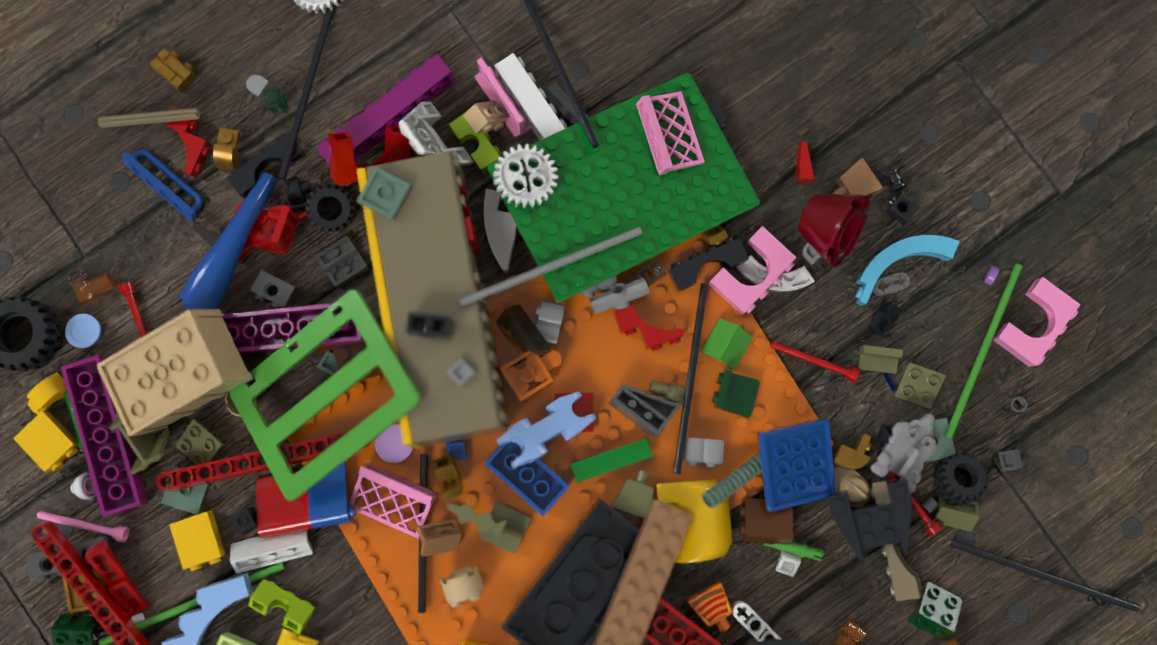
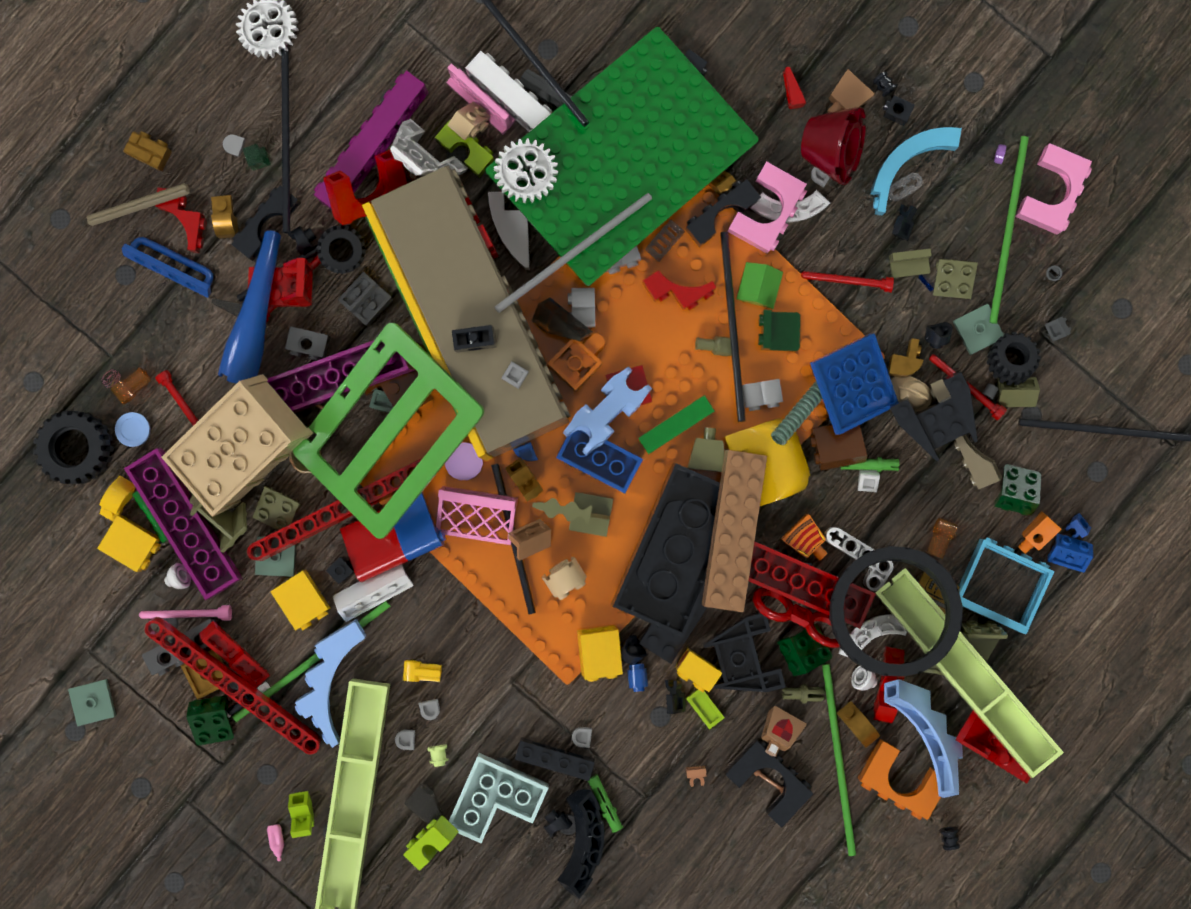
camera: 15 degrees left, 5 degrees up
(270, 595) = (385, 634): lime arch -> none
(384, 193) = (395, 222): sand green plate -> none
(619, 296) = (644, 264): light grey piece -> none
(643, 409) = (695, 368): dark grey wedge -> none
(656, 138) = (640, 95): bright pink fence -> none
(907, 450) = (957, 344): light grey shield -> none

